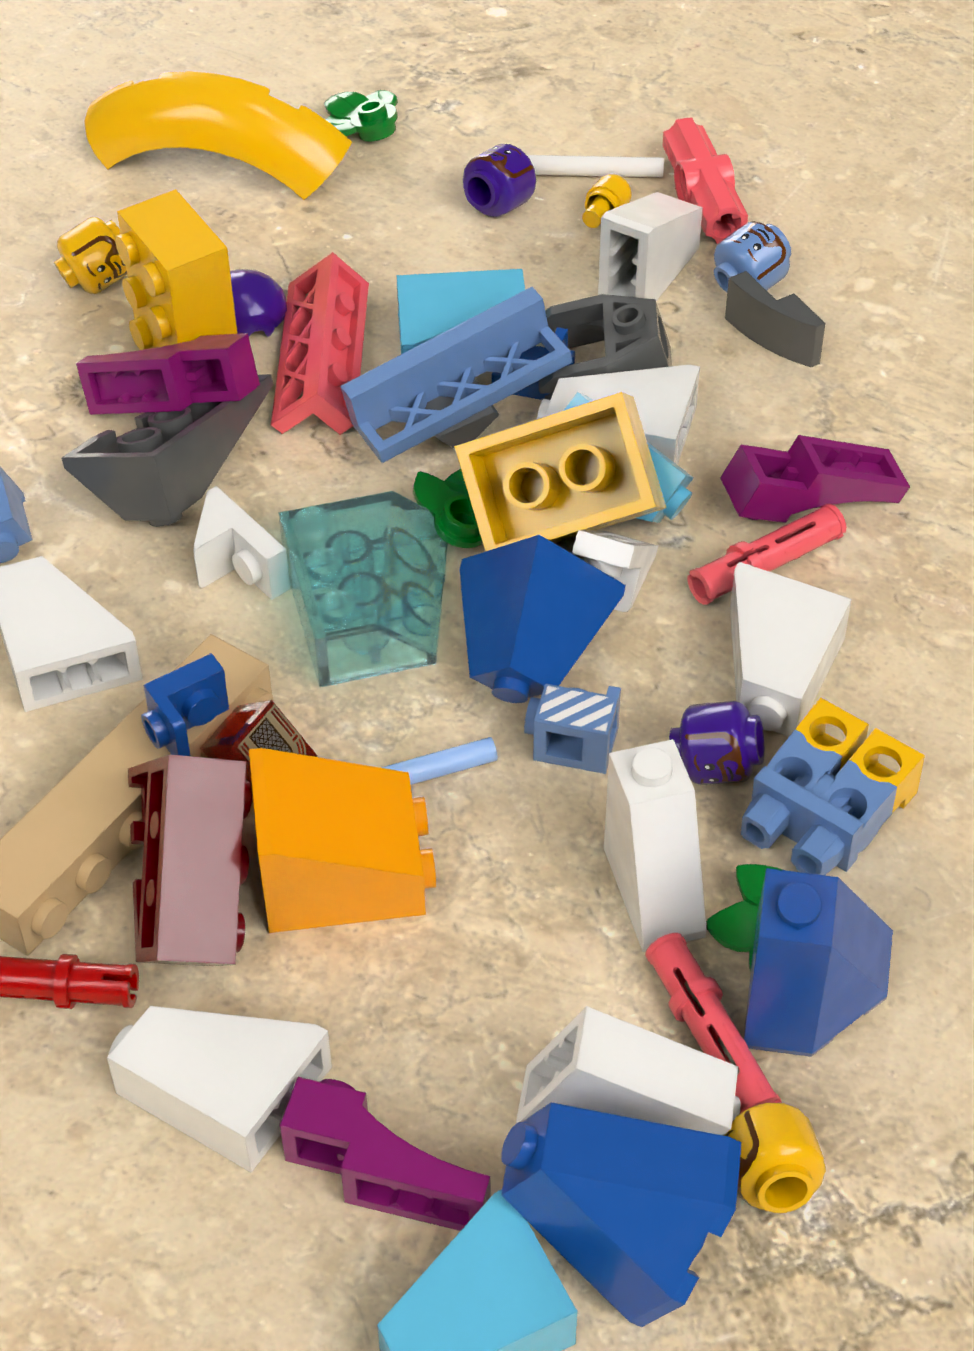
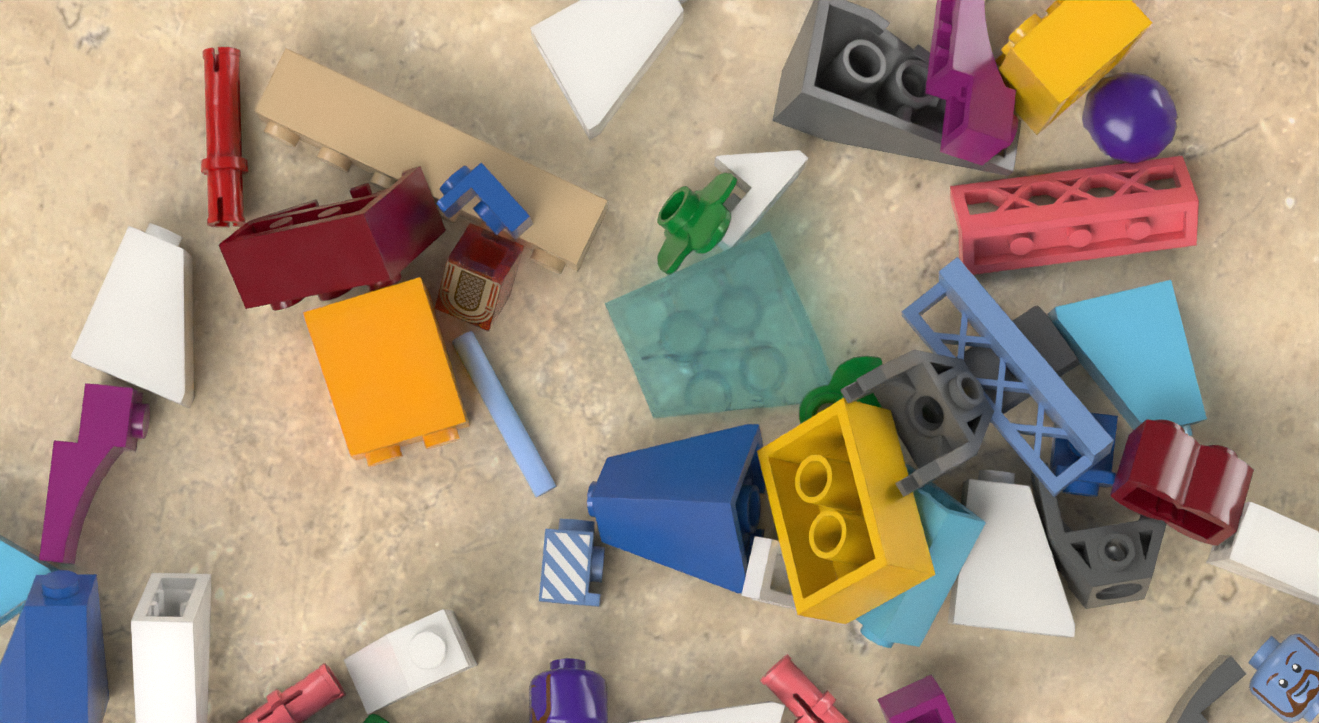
camera: 80 degrees right, 35 degrees up
(252, 575) = (694, 221): none -> green plate
(503, 403) = (934, 408): none -> dark grey piece
(578, 270) = (1182, 482): none -> dark red brick

